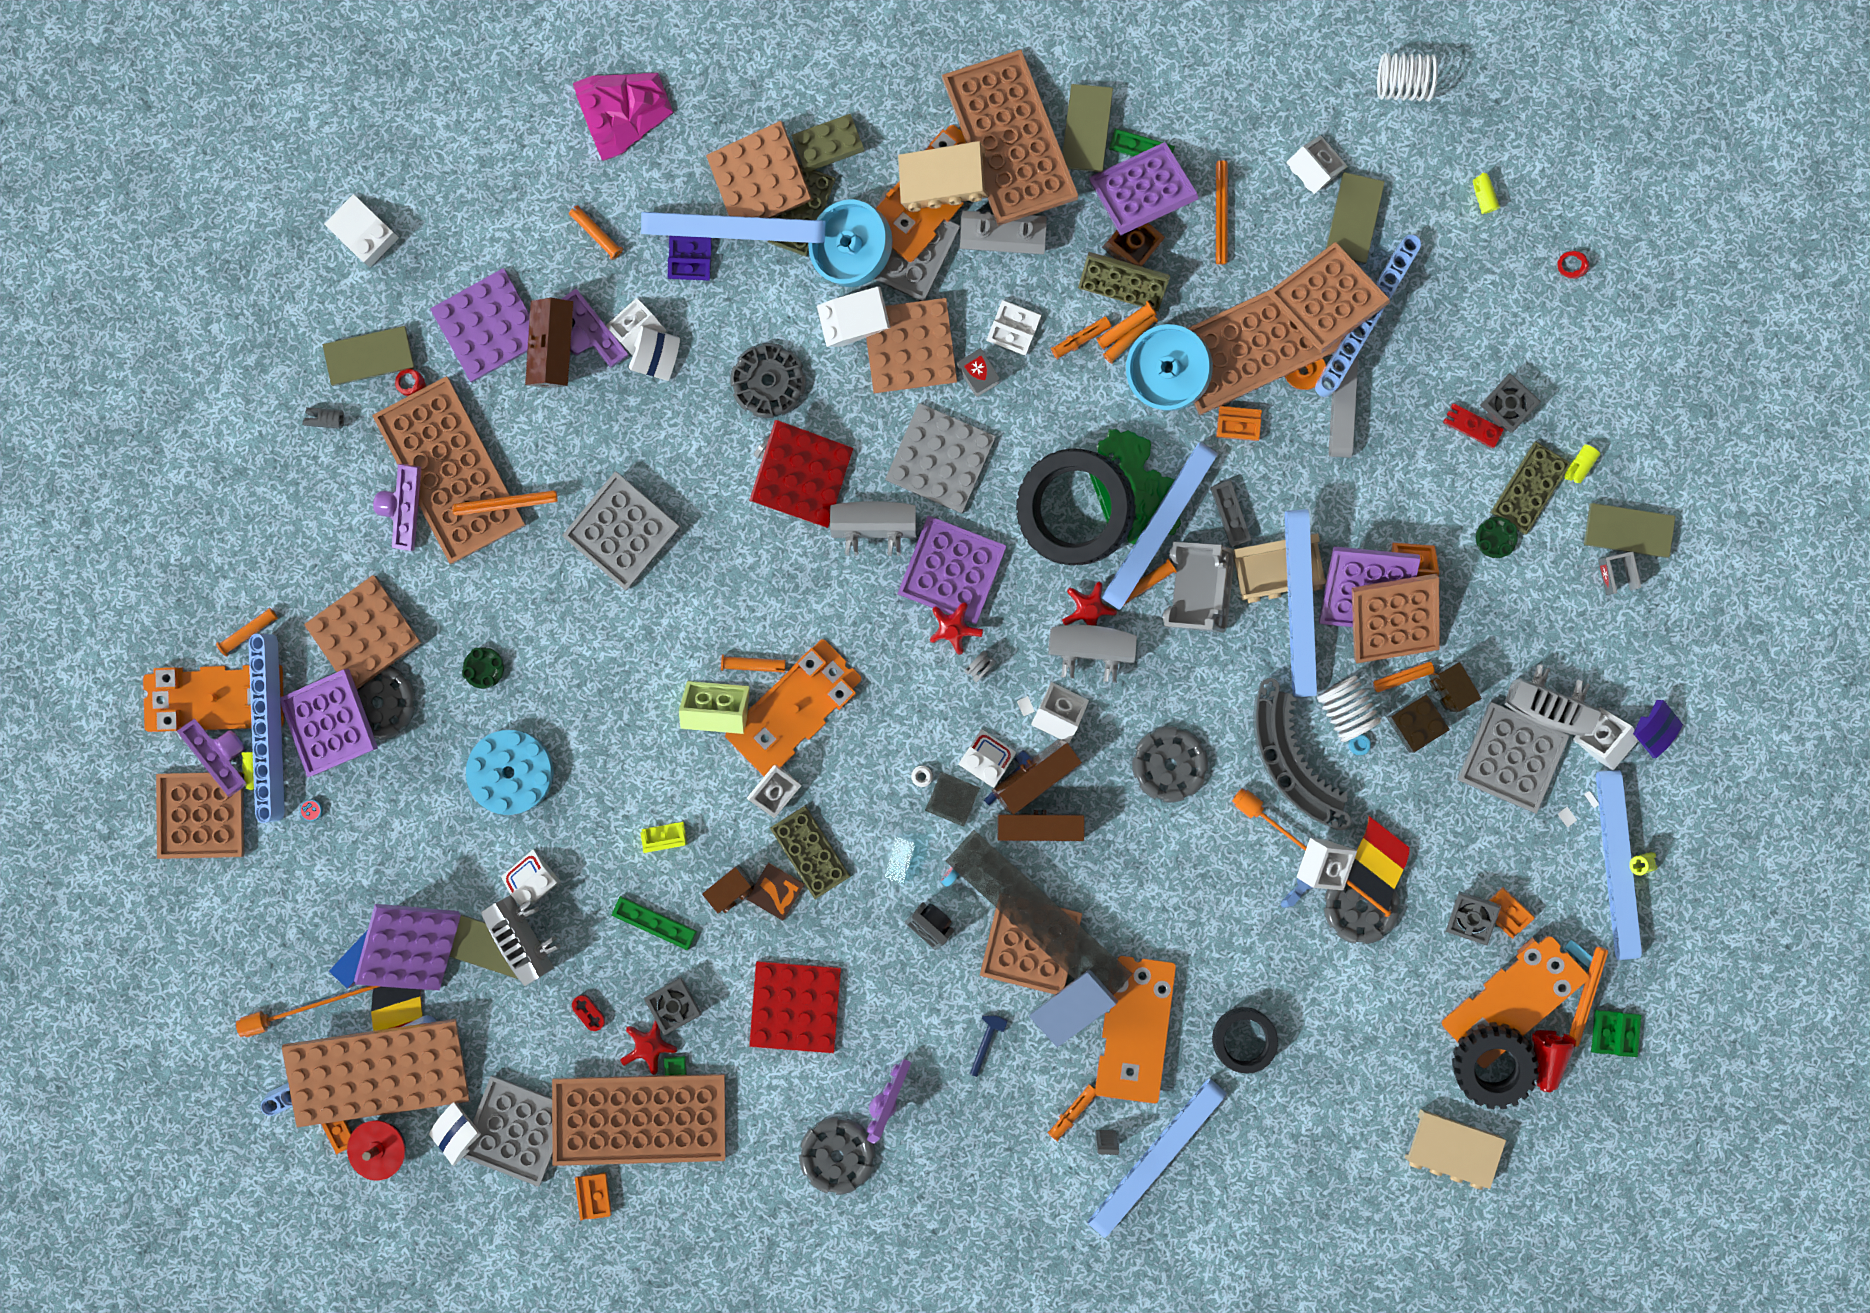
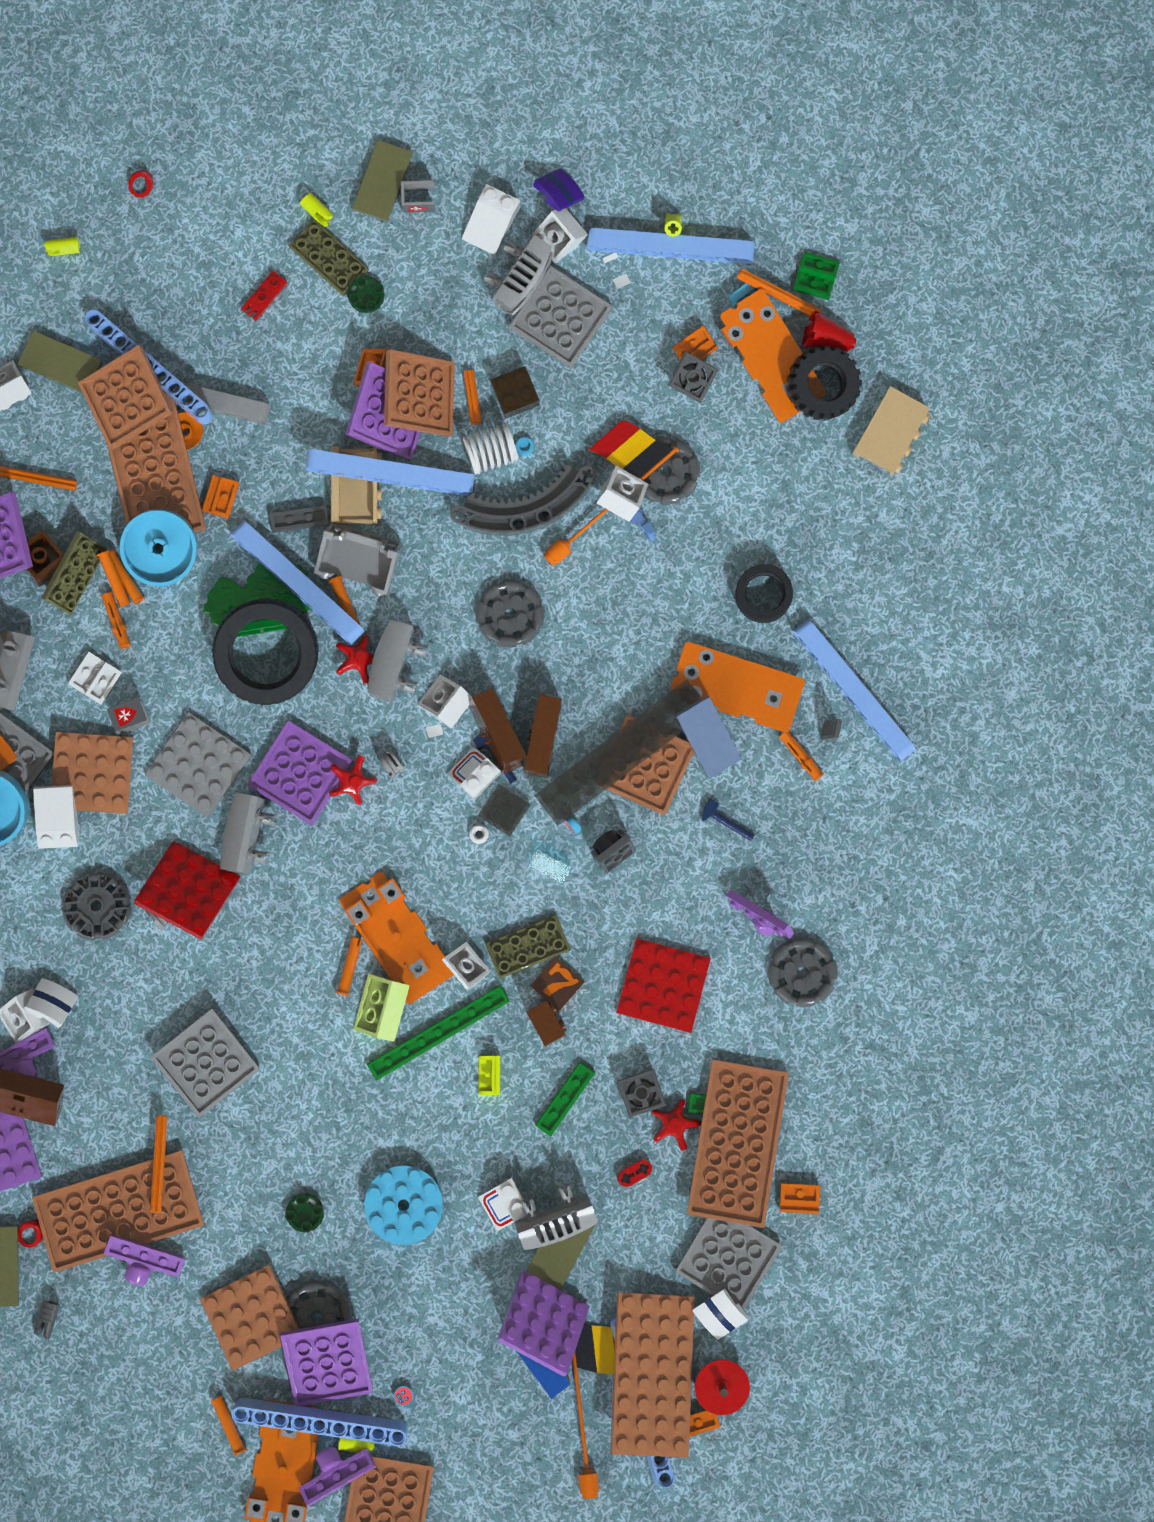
camera: 85 degrees left, 5 degrees down
(700, 773) = (438, 1032): none -> green tile
(1454, 687) = (489, 355): dark brown brick -> none
(1508, 404) = (251, 262): dark grey piece -> none
(1609, 659) = (491, 219): none -> white slope

